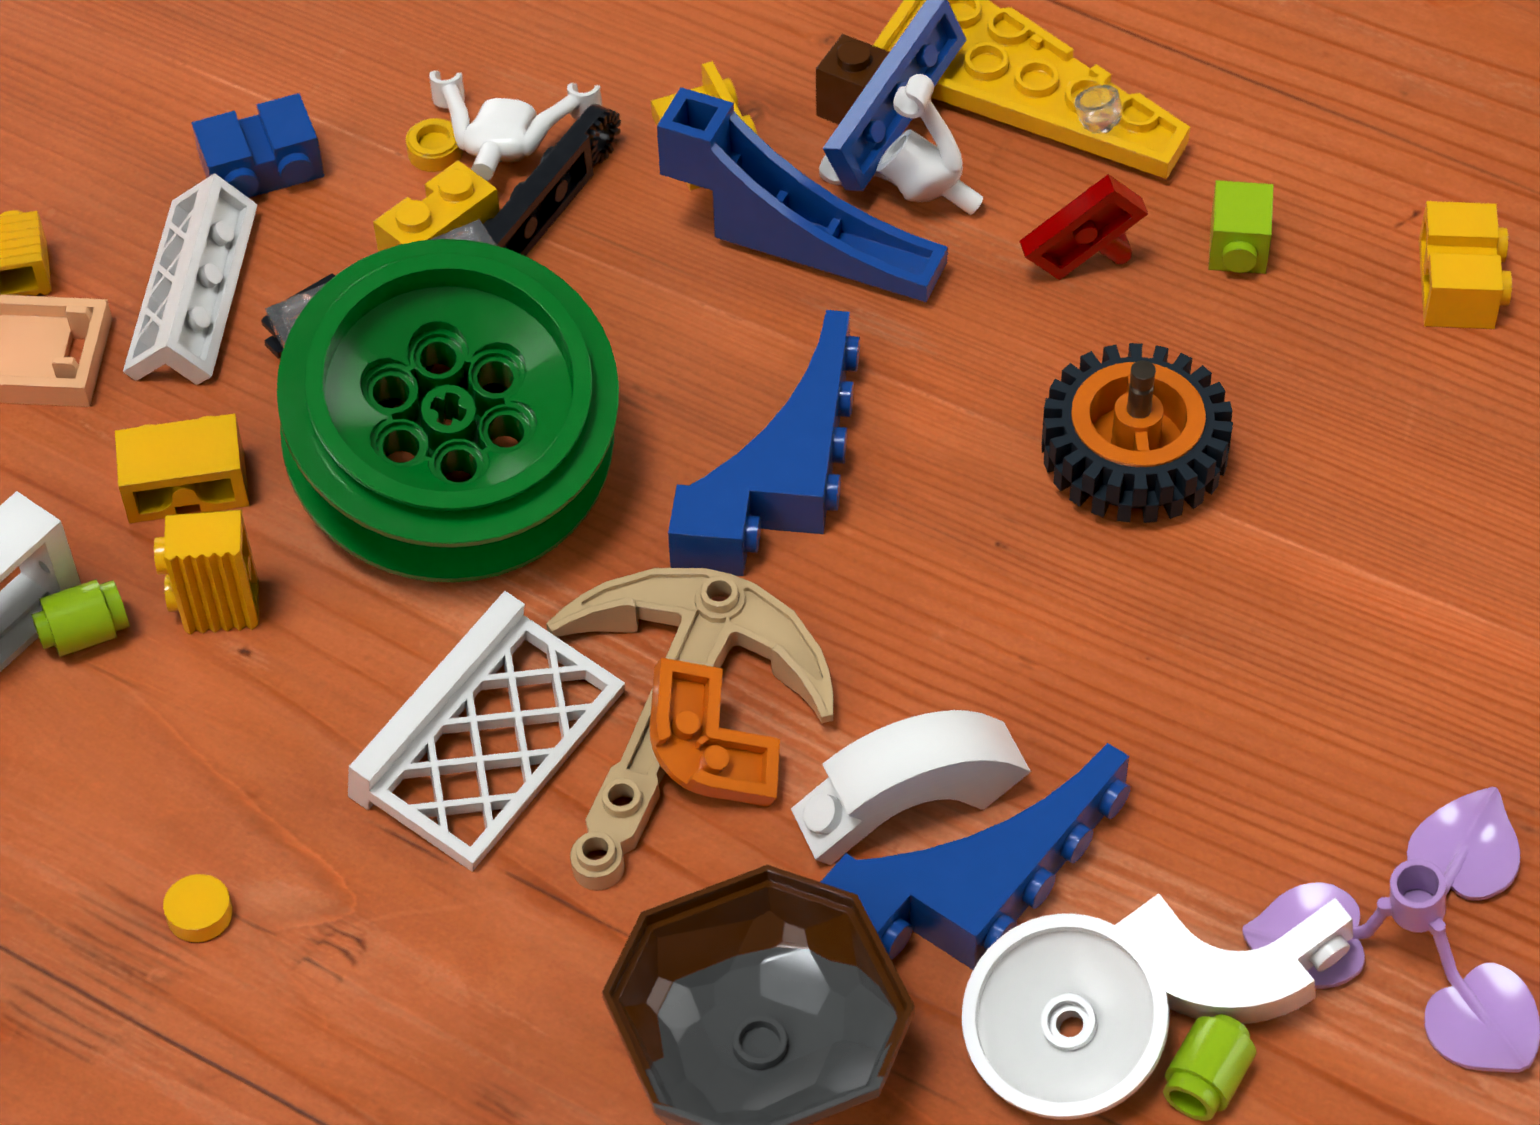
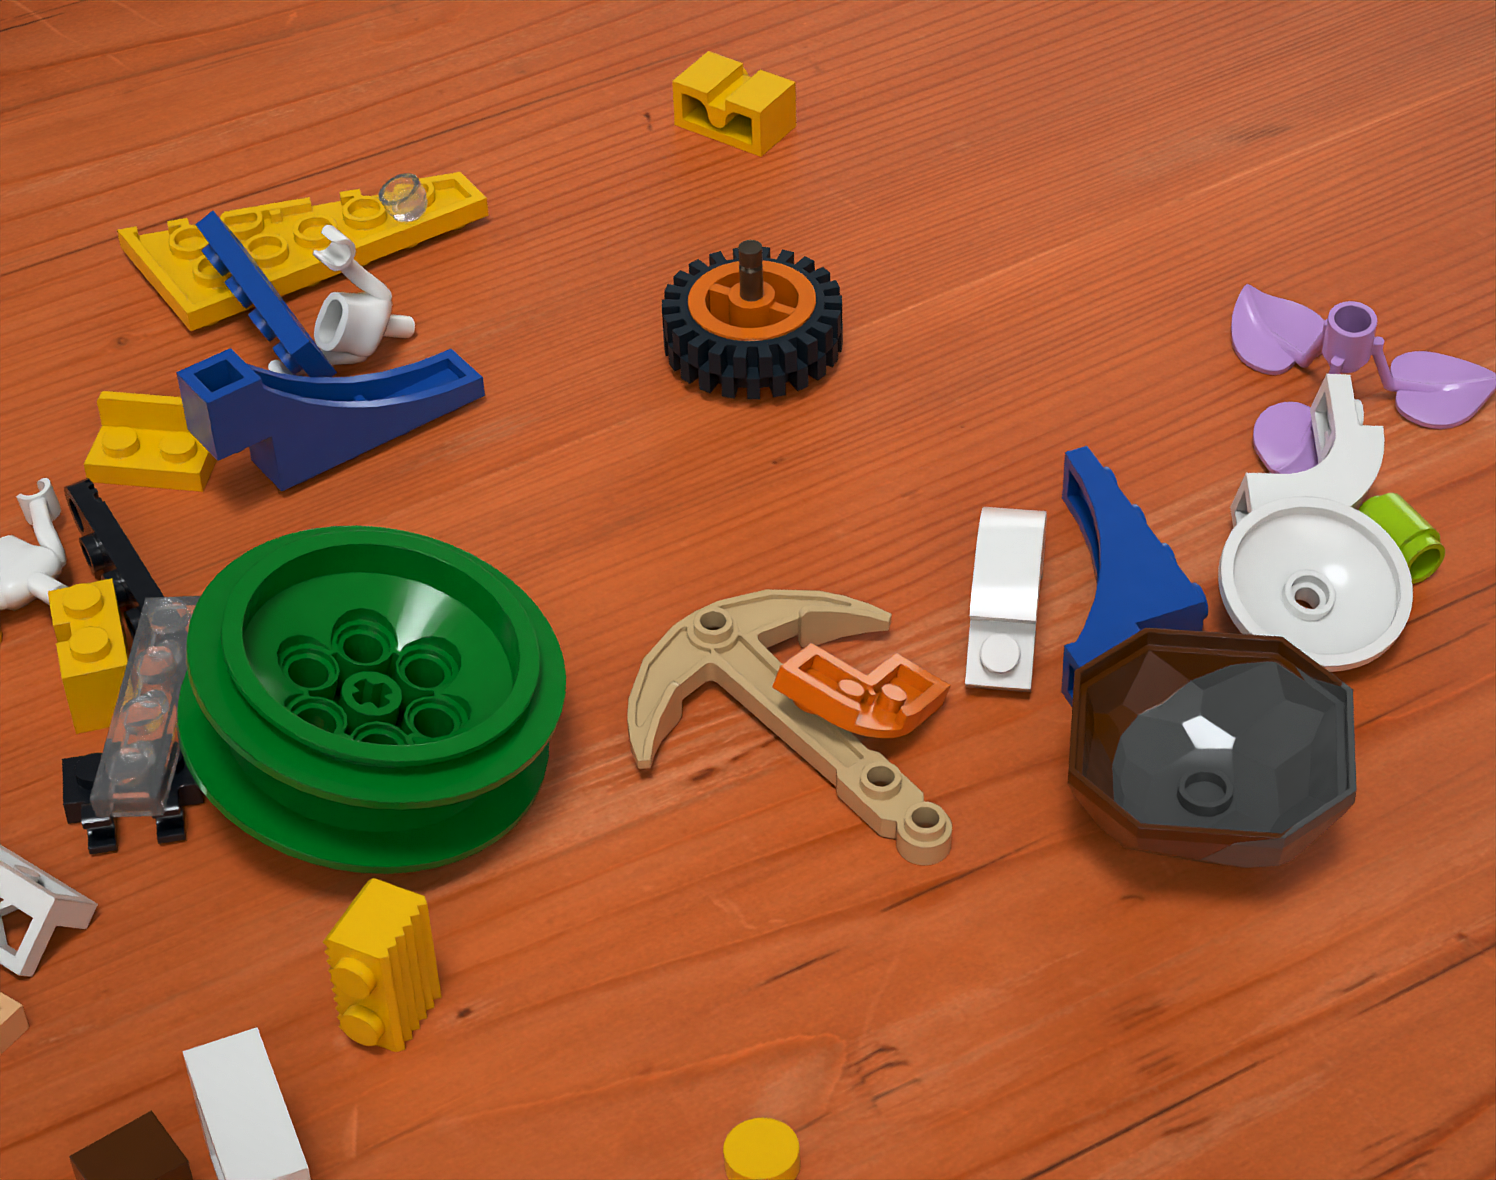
camera: 60 degrees left, 10 degrees down
(80, 617) = (330, 1111): lime brick -> none
(181, 466) = (204, 960): yellow brick -> none
(434, 712) = (668, 870): white fence -> none
(781, 474) = (601, 533): blue arch -> none
(844, 76) = (209, 322): reddish brown brick -> none
(1086, 226) = (522, 261): red plate -> none
(1241, 227) = (588, 190): lime brick -> none

